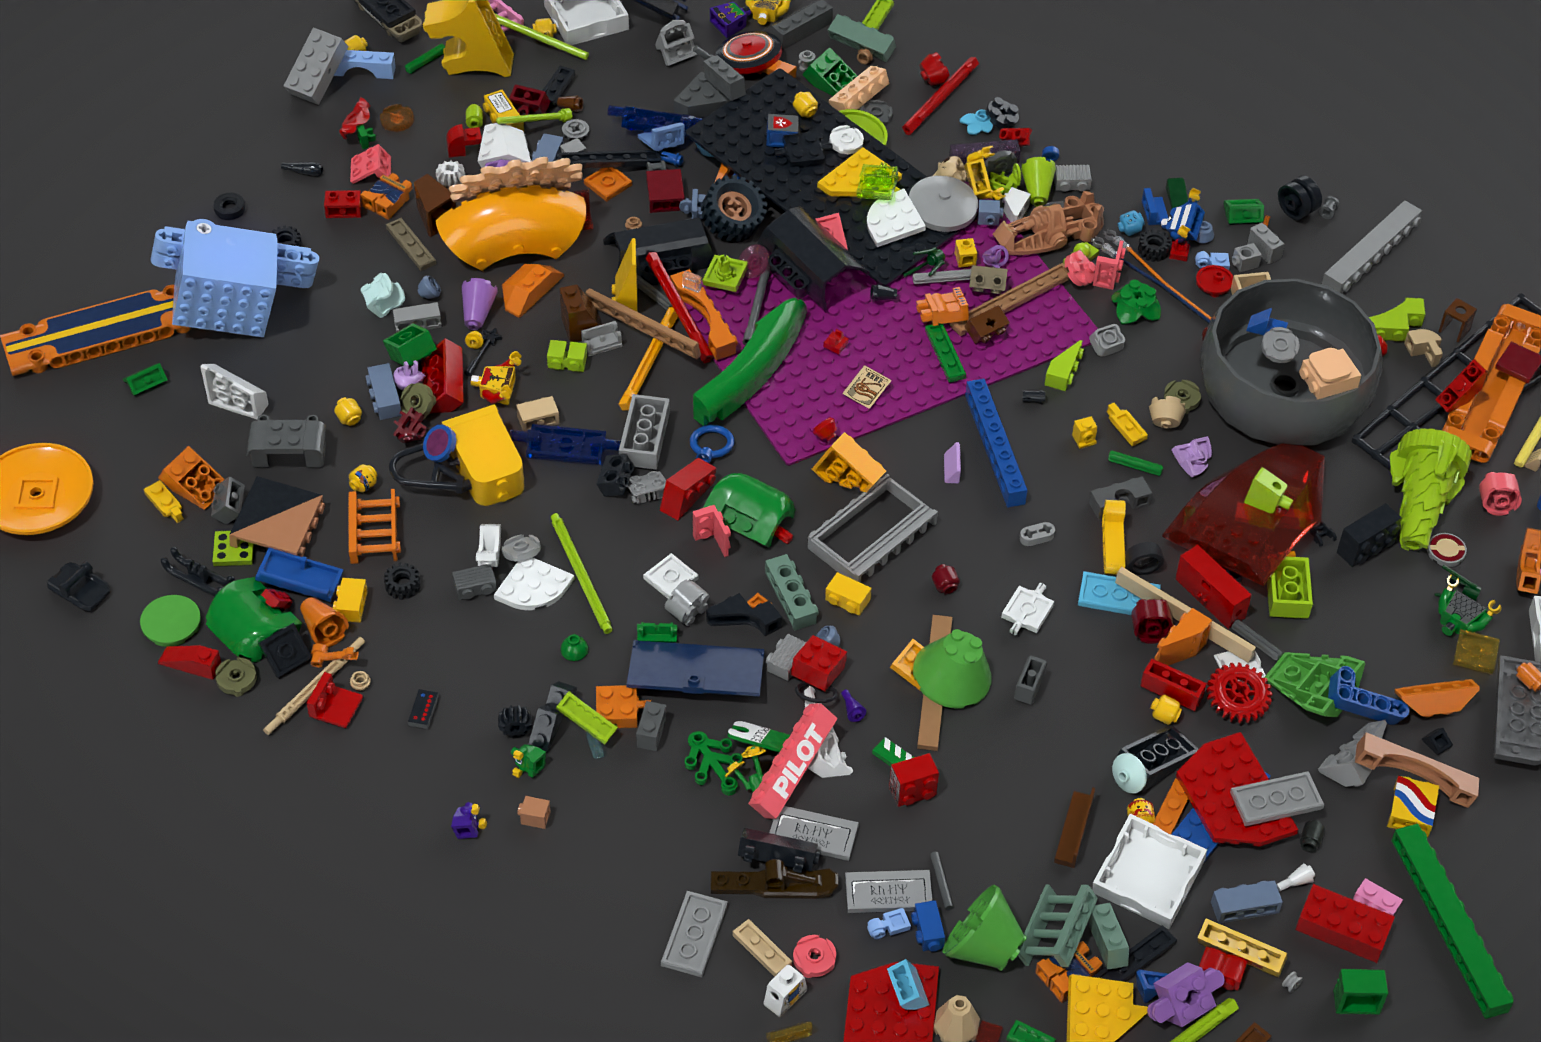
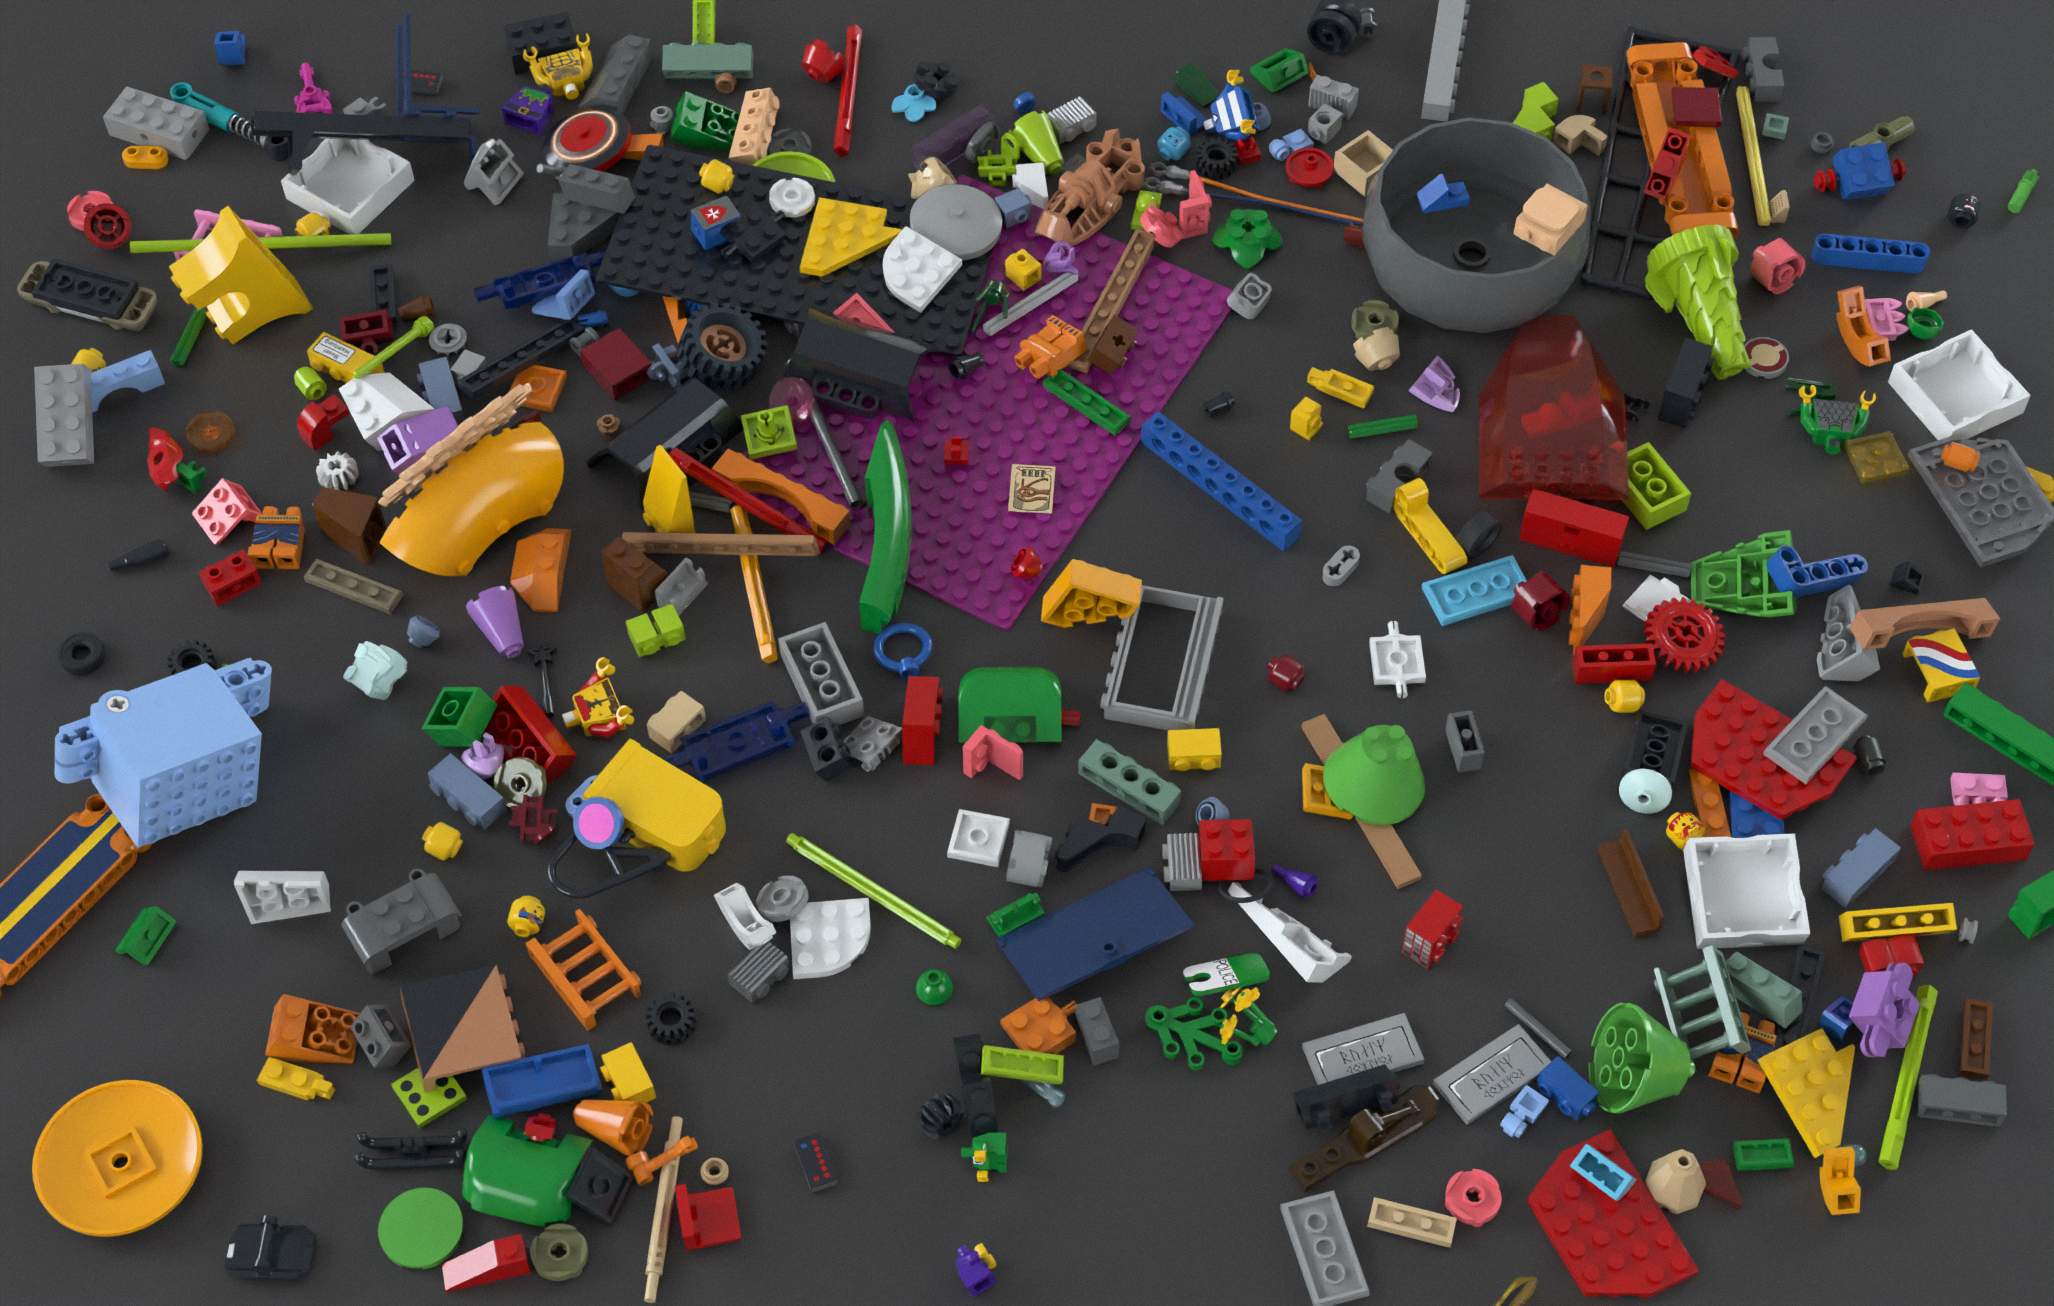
camera: 30 degrees left, 5 degrees up
(421, 315) = (442, 671): light grey piece -> none
(476, 336) = (527, 668): yellow plate -> none
(534, 812) = (1042, 1212): nougat brick -> none
(691, 281) = (747, 463): clear tile -> none
(788, 987) = (1476, 1252): white torso -> none
(792, 761) = (1290, 983): coral brick -> none
(877, 181) = (874, 232): clear neon green plate -> none
(890, 752) = (1382, 912): green tile -> none
(952, 464) = (1191, 531): lavender slope -> none
(978, 177) = (974, 169): yellow torso -> none
(988, 278) = (1073, 288): dark tan brick -> none
(1020, 134) = (970, 99): red hips -> none
(1062, 367) = (1227, 356): lime slope -> none
(1217, 633) = (1522, 571): tan tile -> none
(1267, 492) = (1573, 390): lime torso -> none
(1280, 345) = (1474, 212): light grey tile -> none
(1300, 876) = (1891, 806): white cone -> none
(1438, 697) = (1880, 526): orange wedge -> none

